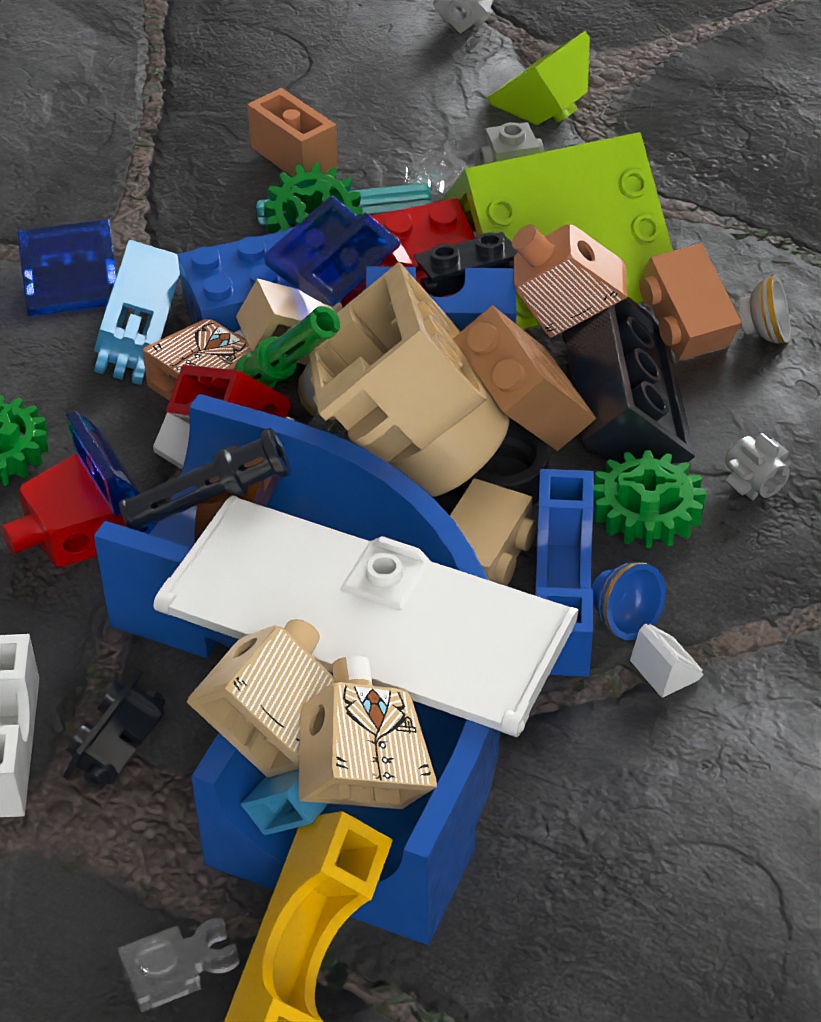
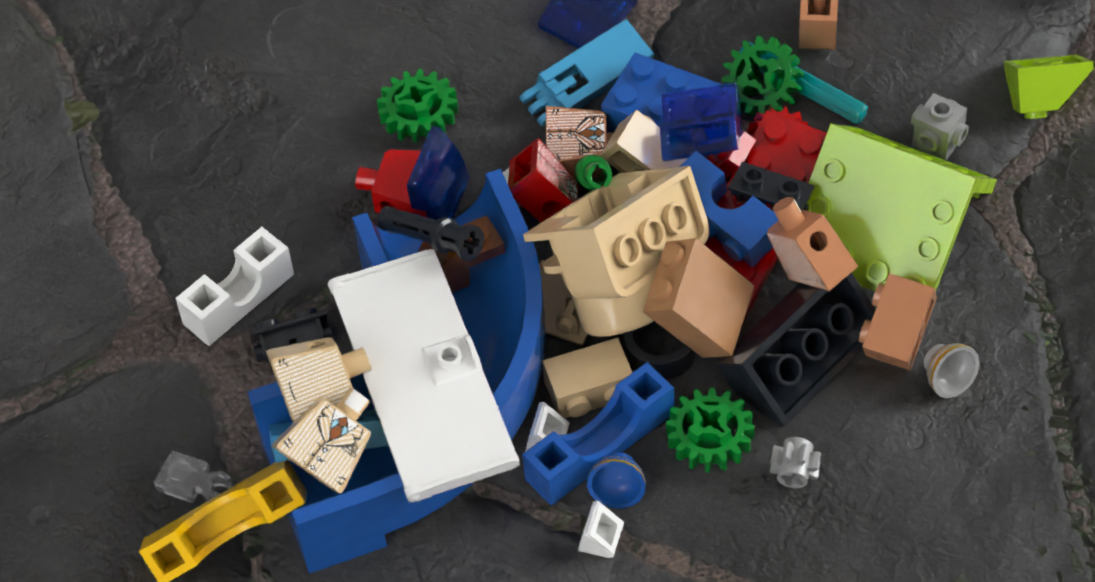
camera: 50 degrees right, 10 degrees up
(440, 168) = (890, 101): clear plate -> none

